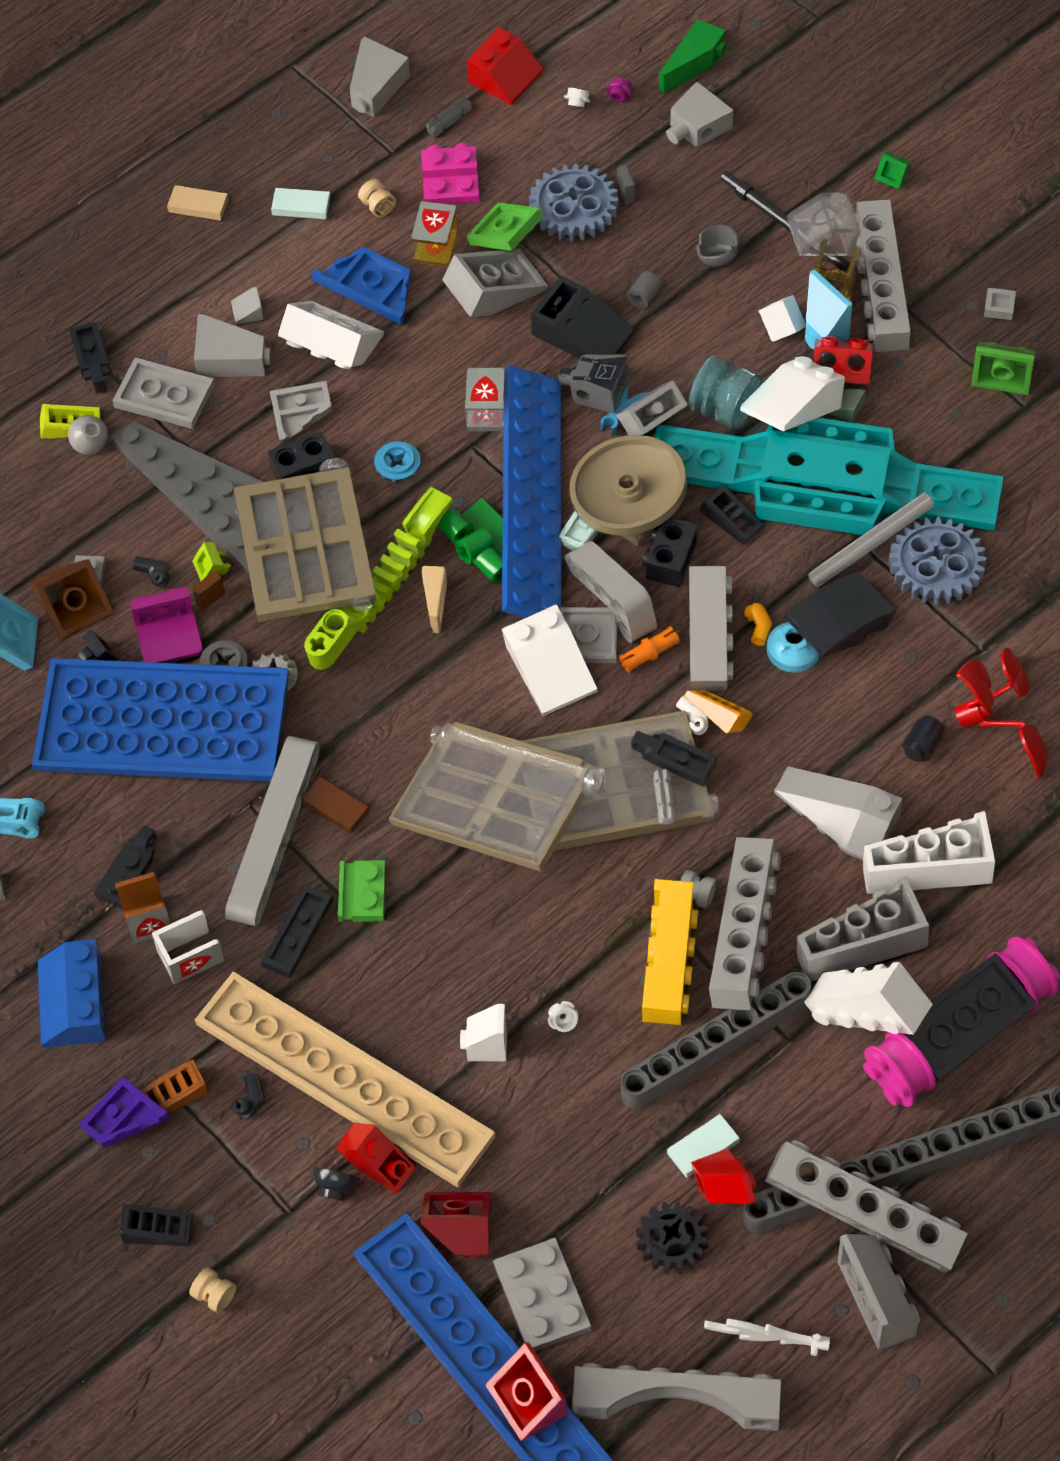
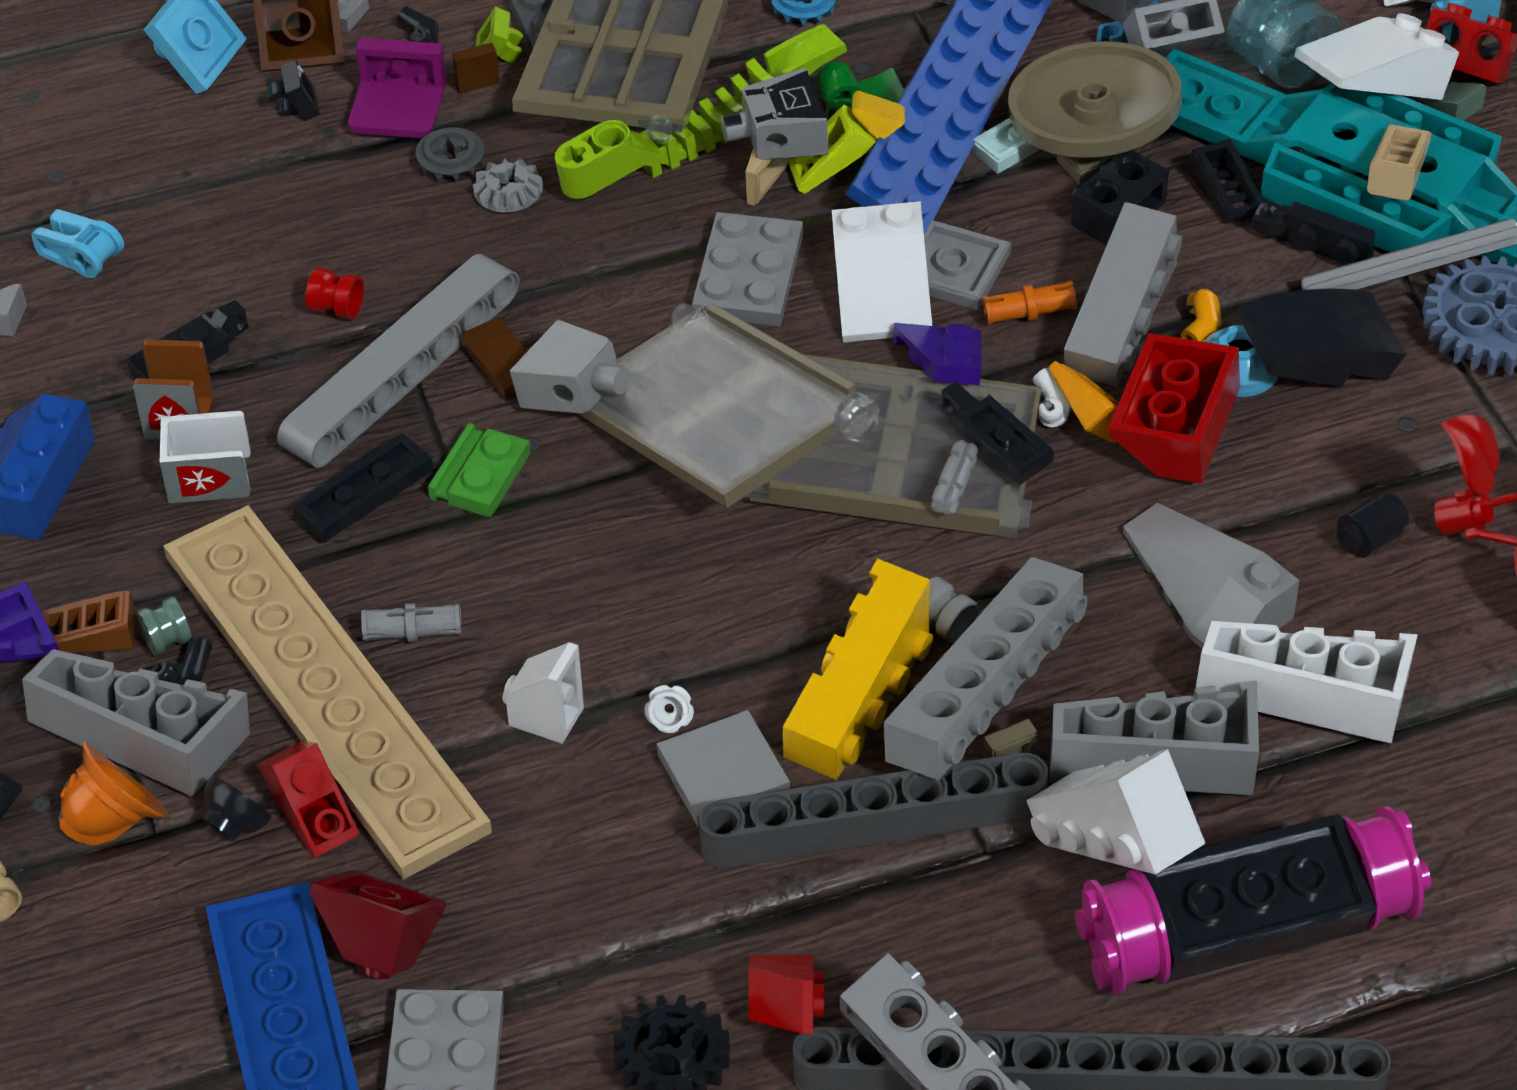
camera: 20 degrees right, 10 degrees down
(161, 719) = (330, 189): blue plate -> none
(205, 796) = (330, 292): none -> red wheel
(224, 1074) = (163, 626): none -> sand green wheel
(244, 1145) = (136, 719): none -> light grey wedge
(254, 1206) = (104, 801): none -> orange piece
(376, 1015) = (411, 622): none -> light grey pin
(390, 804) = (568, 371): none -> light grey torso
(439, 571) = (780, 118): none -> light grey torso
(459, 683) = (749, 267): none -> light grey plate
(491, 569) = (846, 143): none -> neon yellow slope
(500, 547) = (877, 114): none -> yellow slope
(612, 1043) = (721, 763): none -> light grey tile
(615, 589) = (1017, 218): light grey beam -> none
(615, 705) = (943, 352): none -> dark purple wing
(704, 1141) = (797, 935): light aqua tile -> none
(775, 697) = (1177, 405): none -> red slope
(777, 968) = (1011, 740): none -> dark tan tile
(802, 536) = (1315, 231): none -> black hinge
(840, 474) = (1398, 162): none -> tan slope

